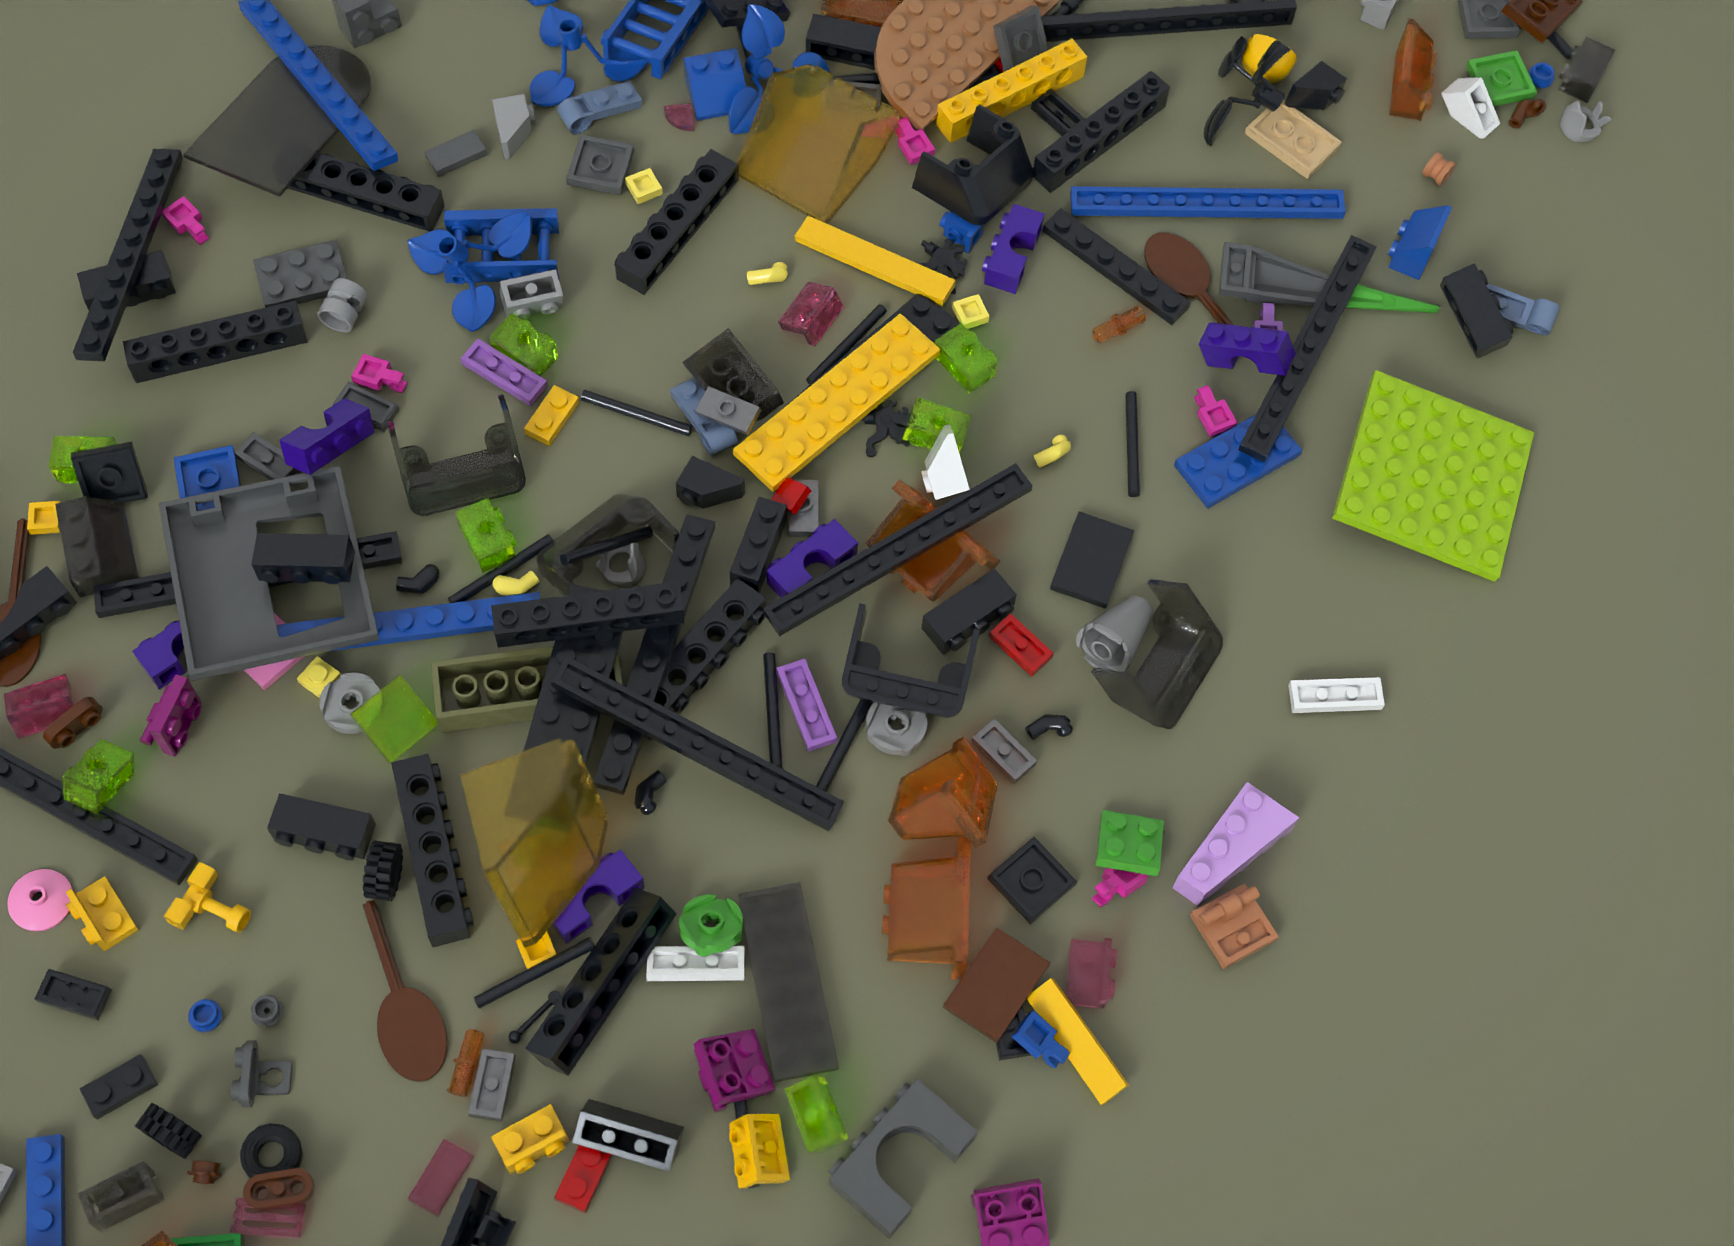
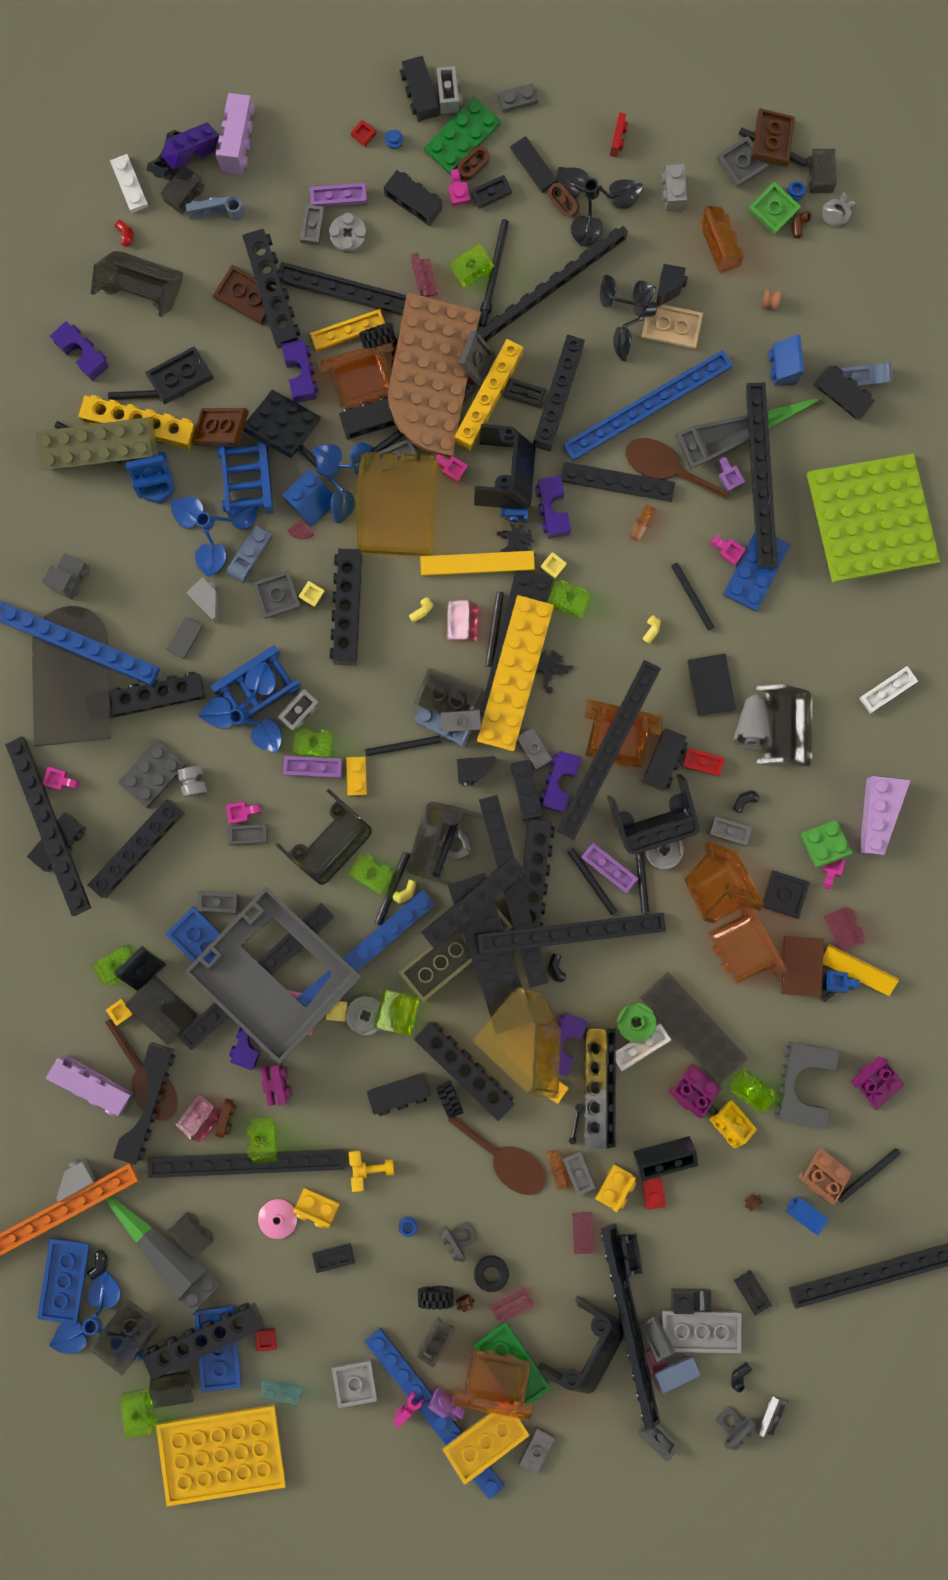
camera: 30 degrees left, 20 degrees up
(118, 1086) = (390, 1287): black plate -> none
(259, 1006) = (432, 1205): dark grey plate -> none
(280, 1189) = (511, 1291): reddish brown plate -> none
(303, 558) = (291, 959): black brick -> none
(314, 448) = (245, 887): dark purple arch -> none
(421, 582) = (354, 922): black arm -> none
(534, 972) = (563, 1103): black bar -> none
(792, 494) = (525, 749): red tile -> none
(928, 416) = (588, 649): clear neon green brick -> none
(944, 467) = (603, 684): white slope -> none
(1234, 925) = (904, 857): nougat plate -> none
(1255, 49) = (626, 281): yellow cylinder -> none
(1267, 348) = (738, 497): dark purple arch -> none
(1471, 105) = (767, 240): white slope -> none

